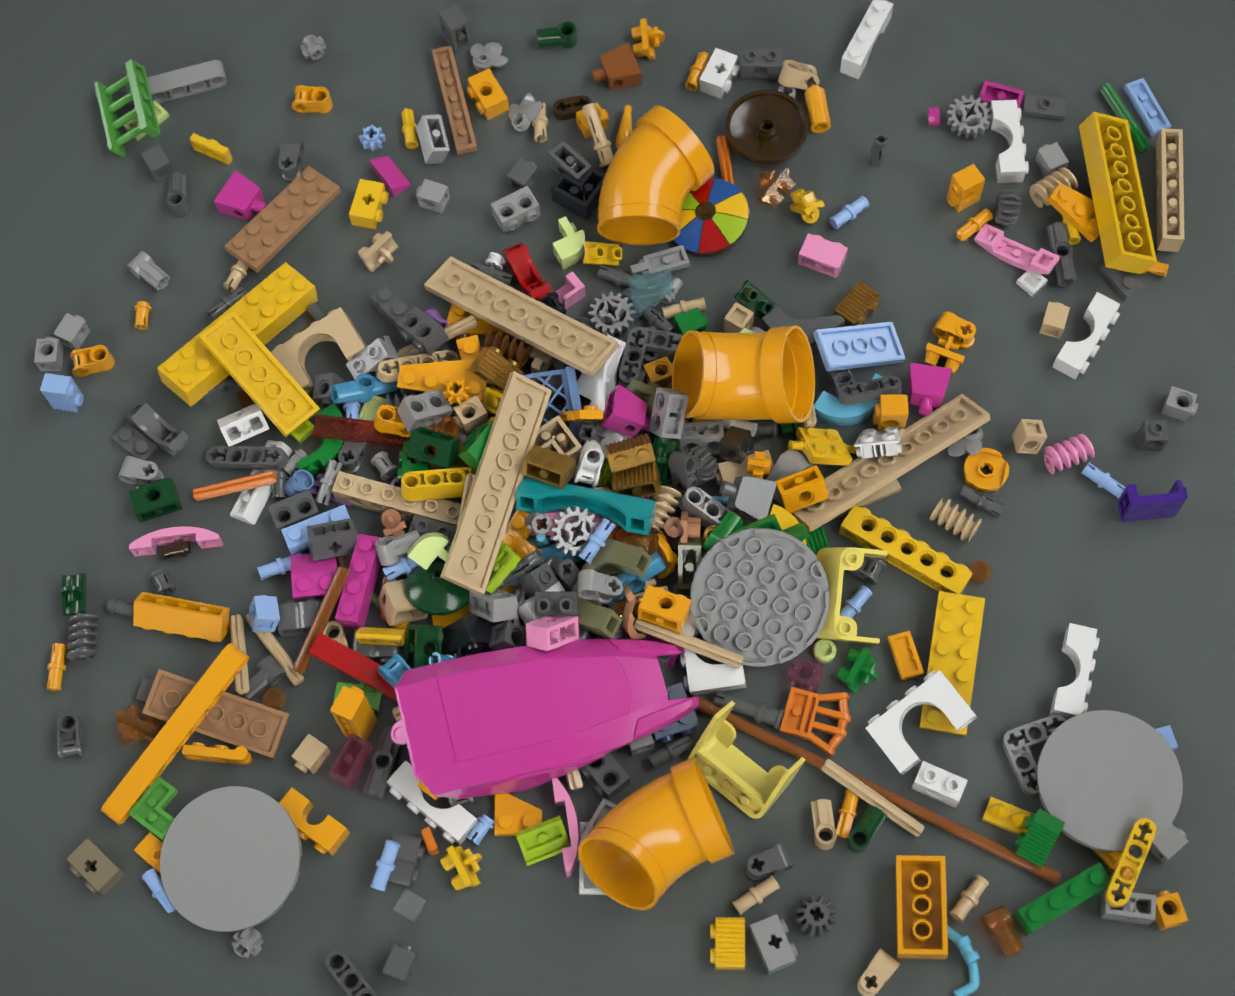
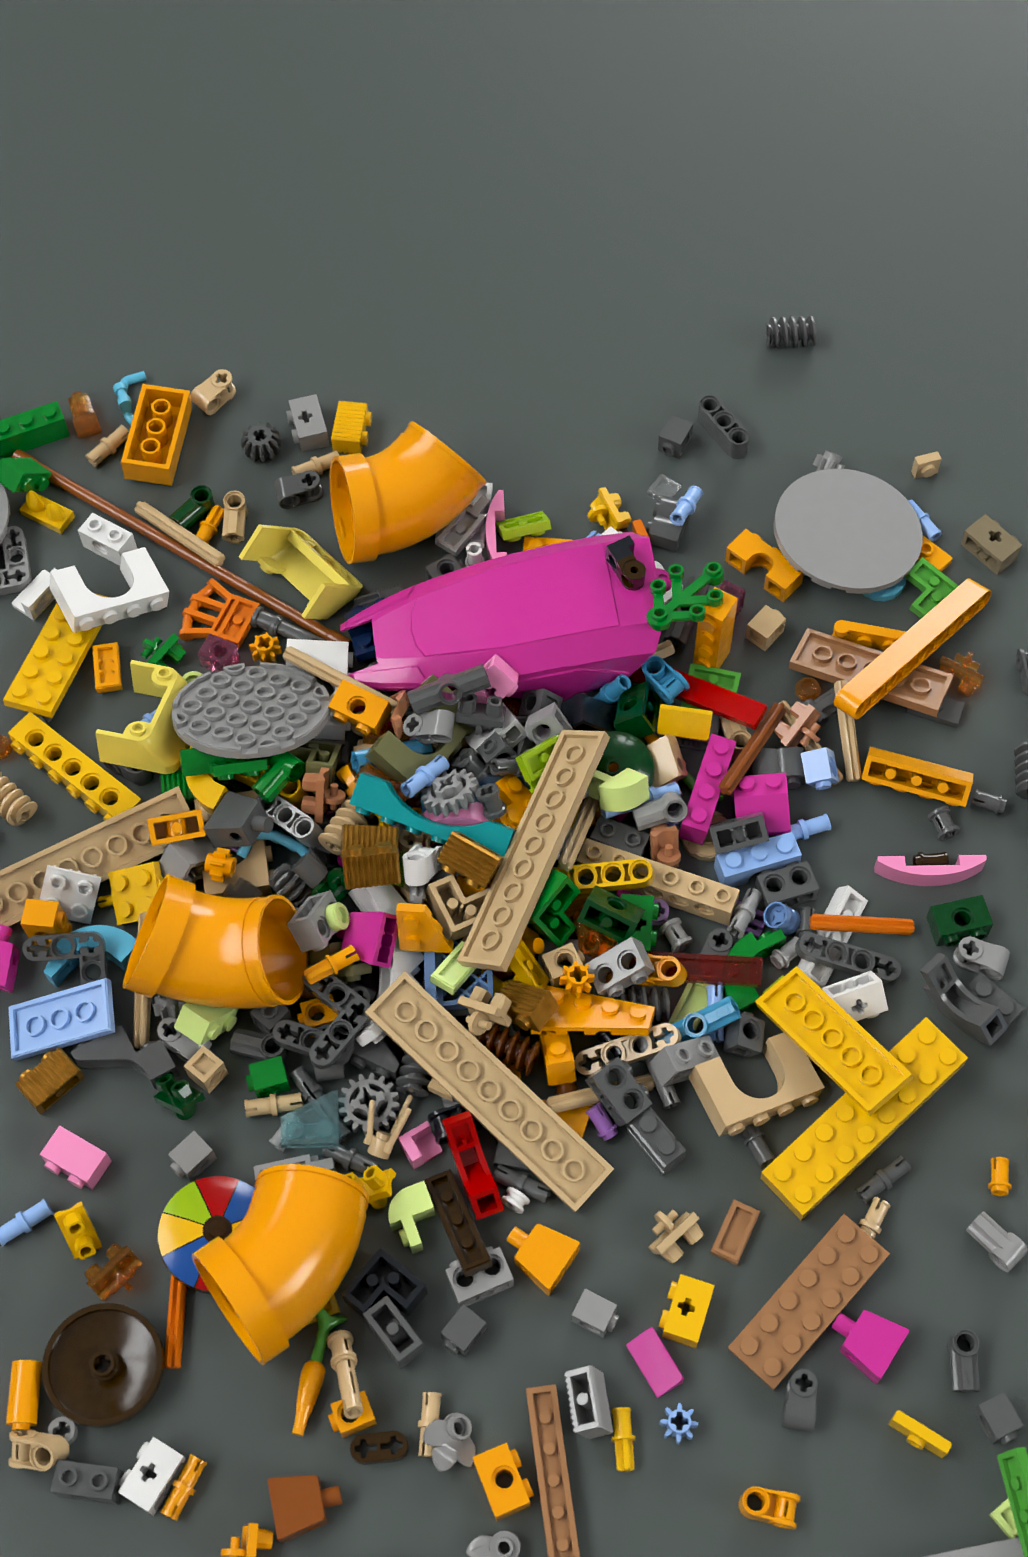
camera: 175 degrees left, 5 degrees down
(150, 953) = (926, 465): none -> tan plate
(277, 645) = (803, 729): none -> nougat hips
(335, 261) = (735, 1232): none -> medium nougat tile
(379, 705) = (662, 616): none -> green plant
(429, 727) = (624, 563): none -> leg
(471, 228) = (543, 1255): none -> light orange torso
(526, 356) = (482, 1012): none -> tan hips
(534, 238) = (458, 1223): none -> dark brown tile
(560, 389) = (451, 973): none -> yellowish green tile
(583, 605) = (465, 682): none -> dark grey piece
(588, 806) = (474, 554): none -> white pin
(597, 285) = (382, 1143): none -> tan plant
(637, 358) = (345, 1010): none -> dark grey beam
(650, 380) = (330, 965): none -> light orange axle
(652, 417) = (337, 916): none -> yellowish green tile
(736, 265) = (191, 1157): none -> light grey brick
(764, 680) = (265, 648): none -> light orange gear
(991, 728) = (35, 596): none -> white panel

